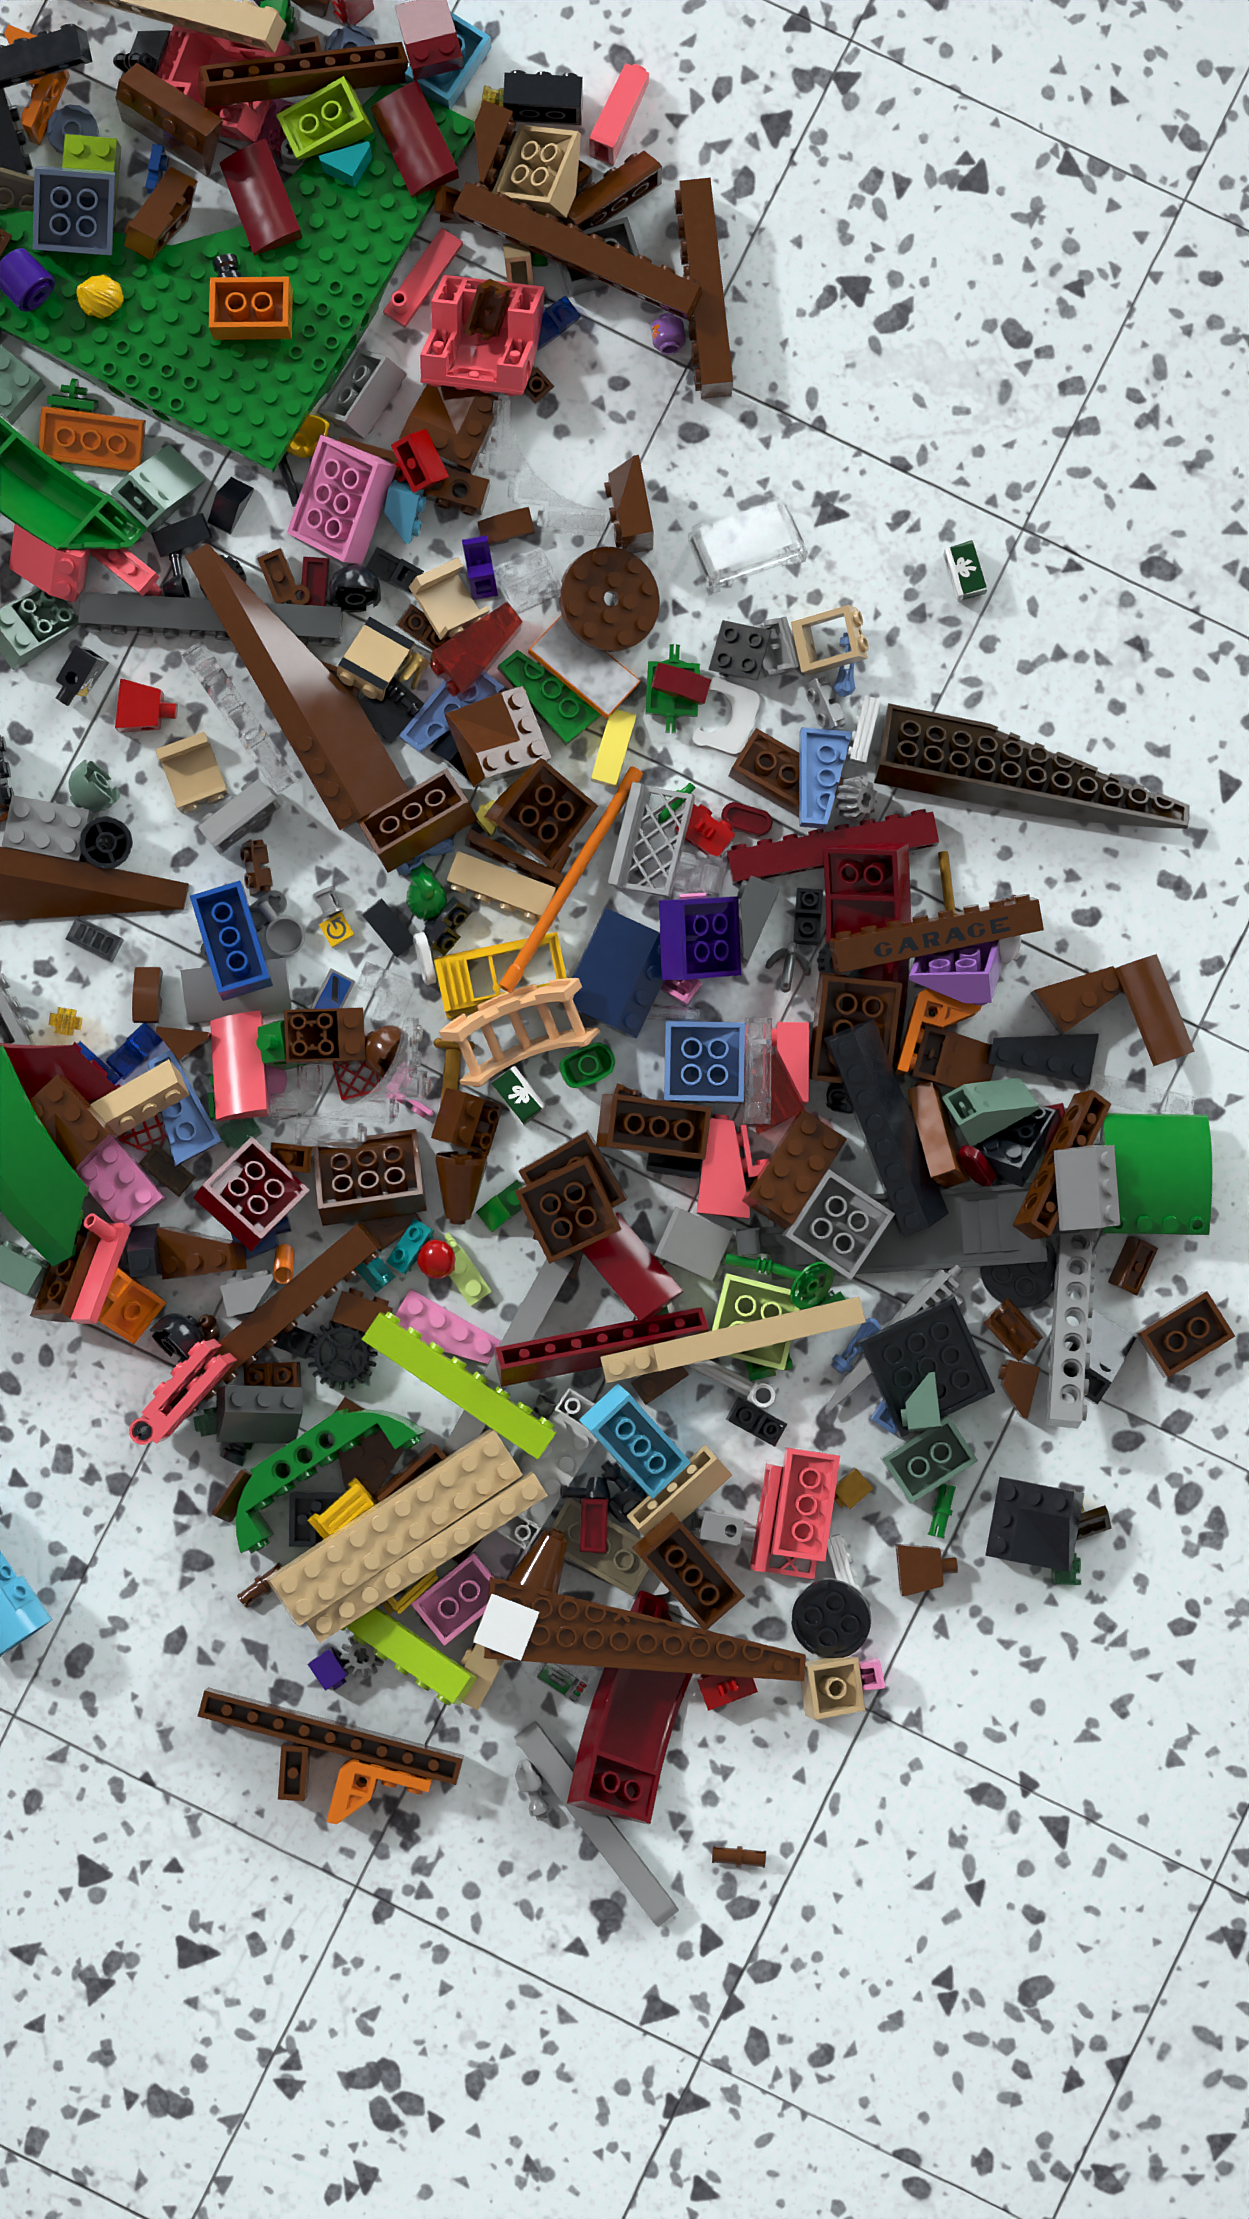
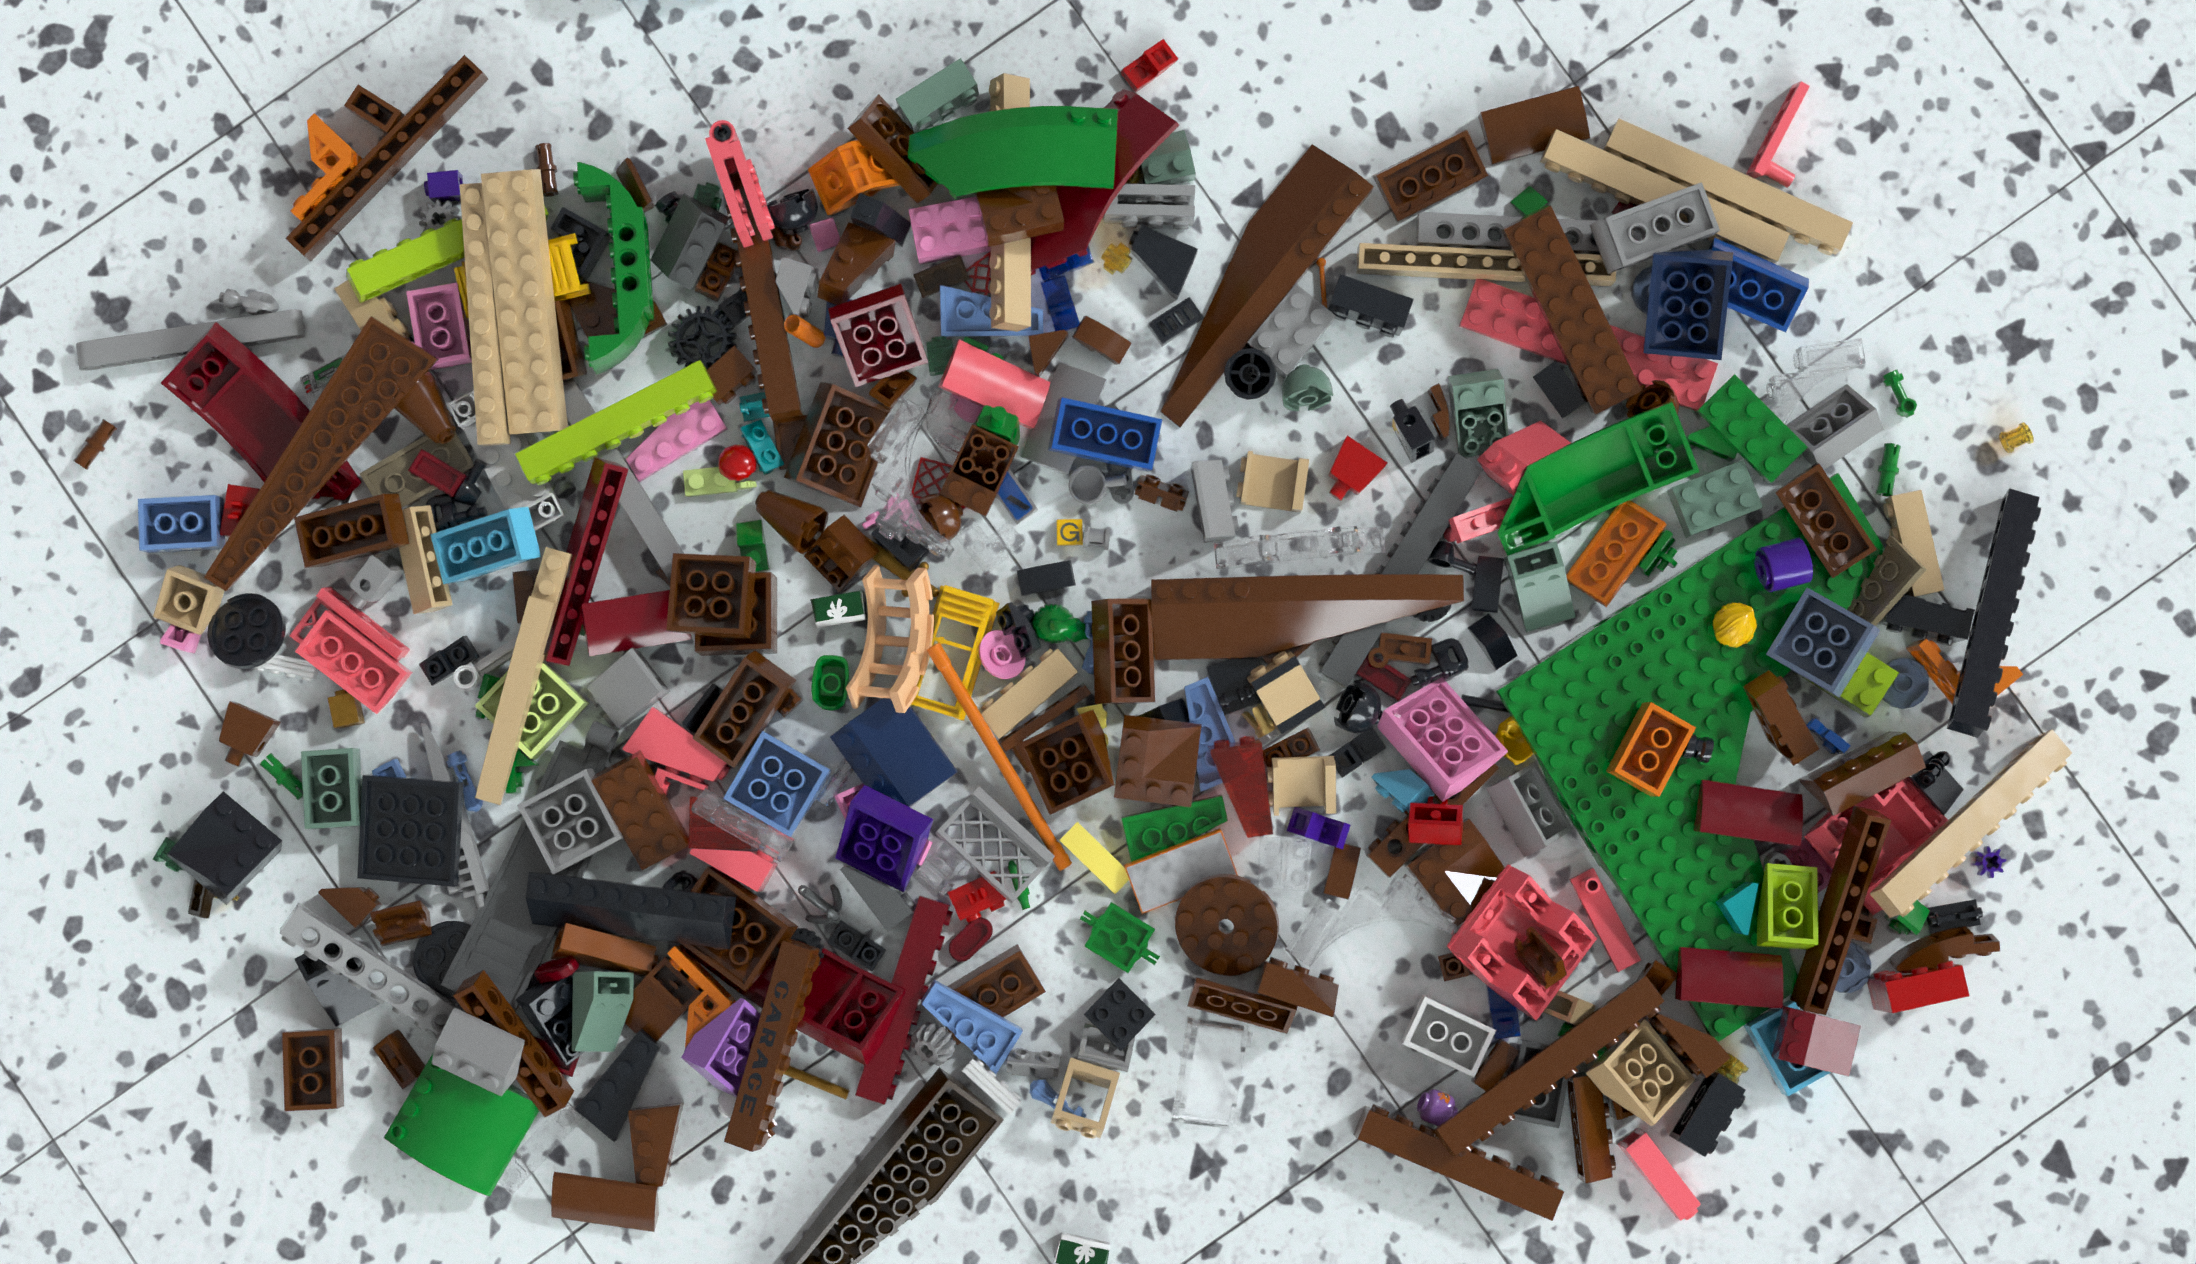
camera: 120 degrees right, 0 degrees up
(42, 979) = (1163, 258): none -> black slope
(56, 654) = (1440, 419): none -> reddish brown slope
(102, 1268) = (880, 172): coral piece -> none
(185, 1297) = (825, 234): none -> bright pink slope
(275, 534) = (1445, 666): none -> black piece
(424, 958) = (1001, 593): white tile -> none
(435, 1063) = (905, 552): none -> black hinge
(480, 928) = (1010, 661): none -> bright pink dish
(506, 1627) = (387, 349): white sticker -> none
(600, 356) = (1448, 1036): none -> white brick
(603, 303) = (1495, 1065): none -> reddish brown slope
(673, 548) = (1241, 1005): none -> reddish brown slope
(681, 682) = (1117, 946): dark red slope -> none
(736, 733) = (1069, 991): white piece -> none
(767, 1733) = (180, 523): none -> medium blue brick
(803, 1279) = (537, 766): green dish -> none
(922, 1407) = (372, 804): sand green slope -> none

